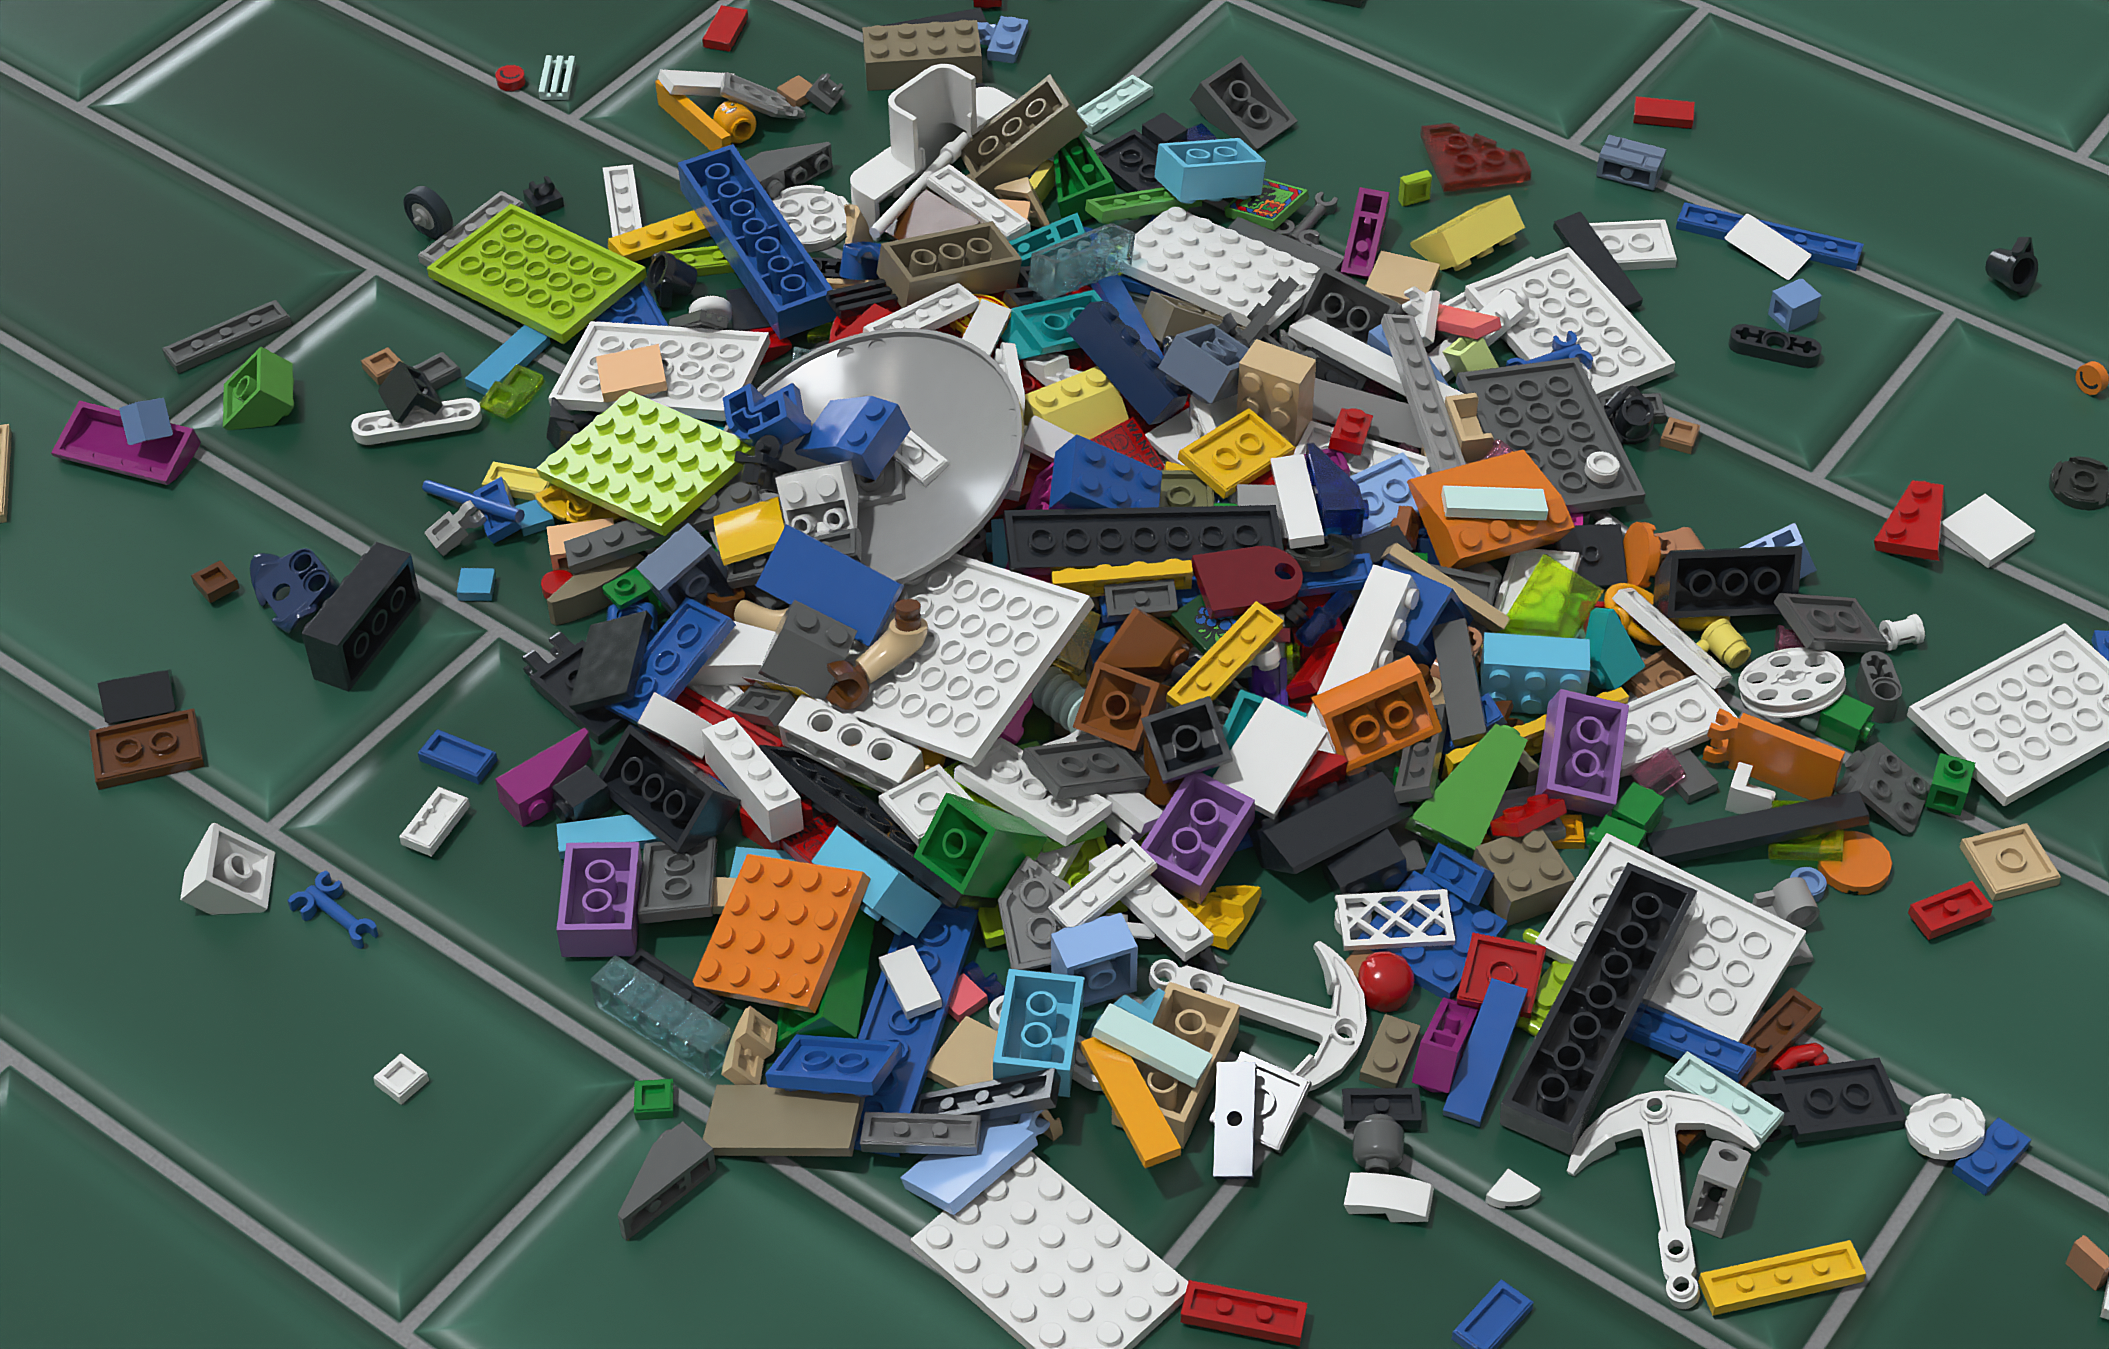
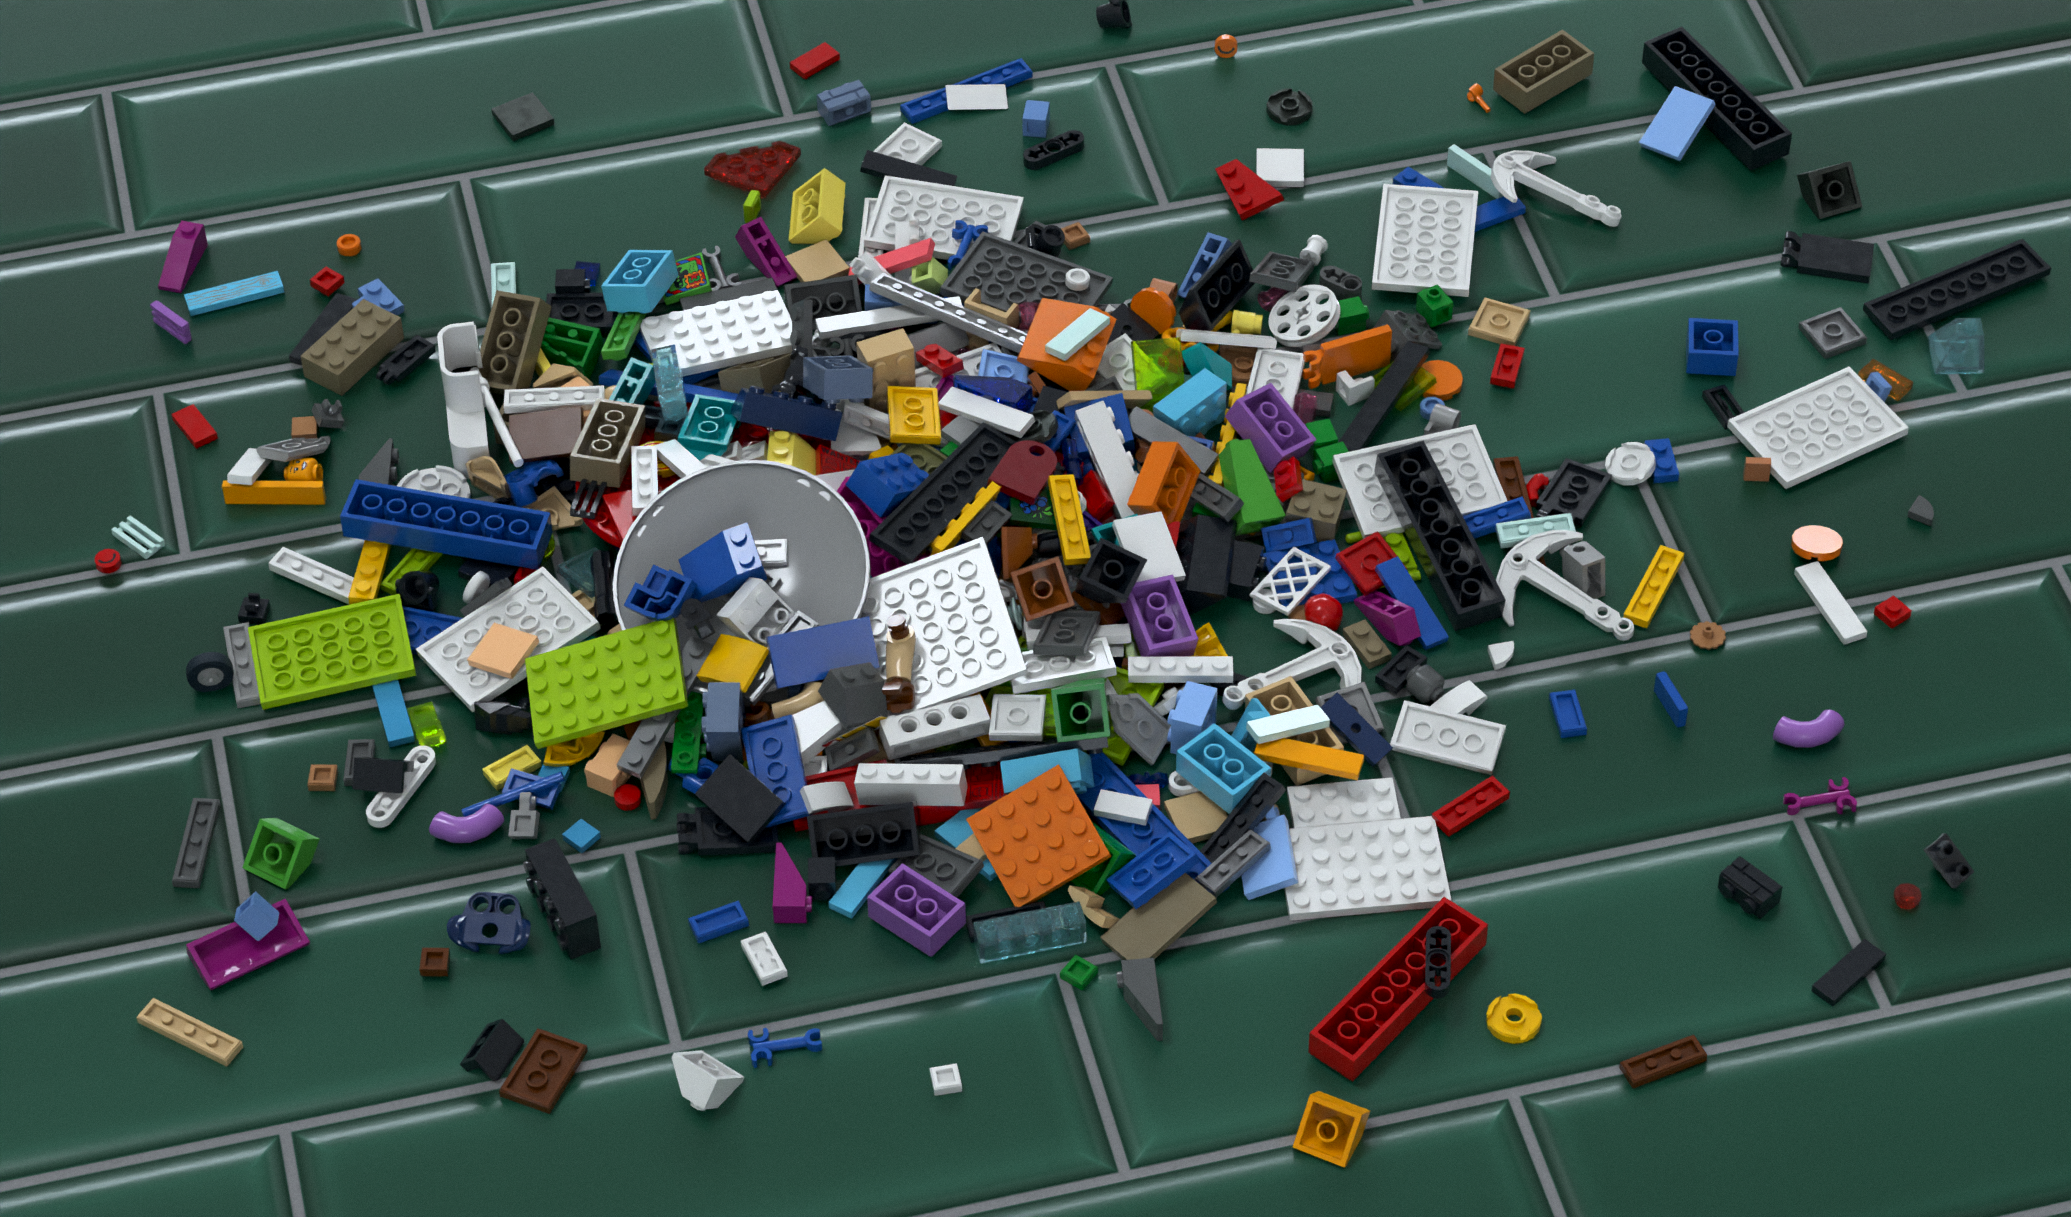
camera: 50 degrees left, 0 degrees up
(404, 498) = (466, 828): none -> medium lavender cylinder
(1103, 886) = (1157, 679): white tile -> none
(1140, 1199) = (1343, 802): none -> white plate
(1242, 104) = (585, 232): dark grey slope -> none
(1325, 1222) = (1448, 737): none -> white tile

